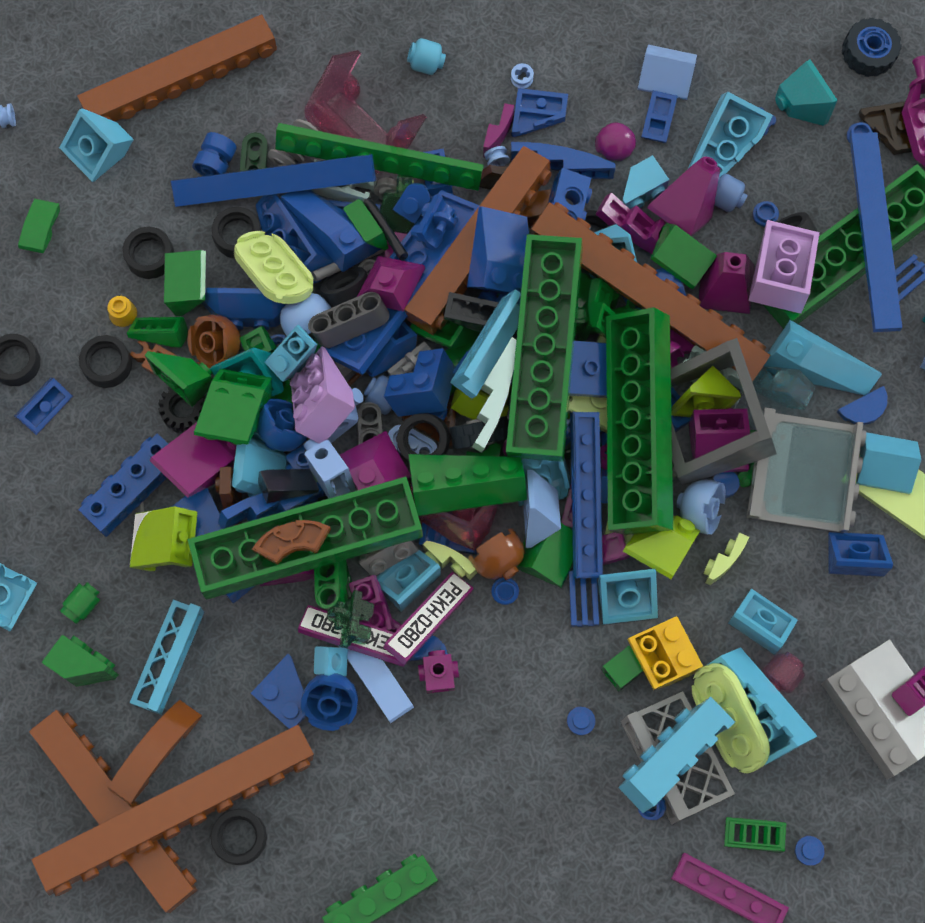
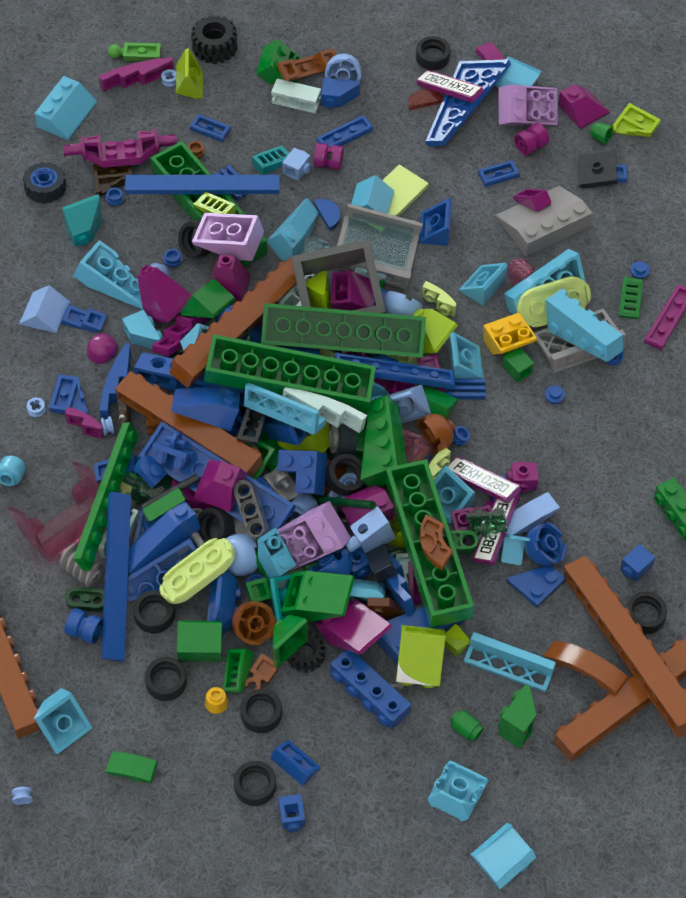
camera: 90 degrees left, 15 degrees down
(192, 591) = (456, 640): none -> lime slope
(311, 826) = (637, 563): none -> blue brick
(370, 438) = (345, 502): none -> dark green bar
(828, 265) = (228, 207): none -> lime slope

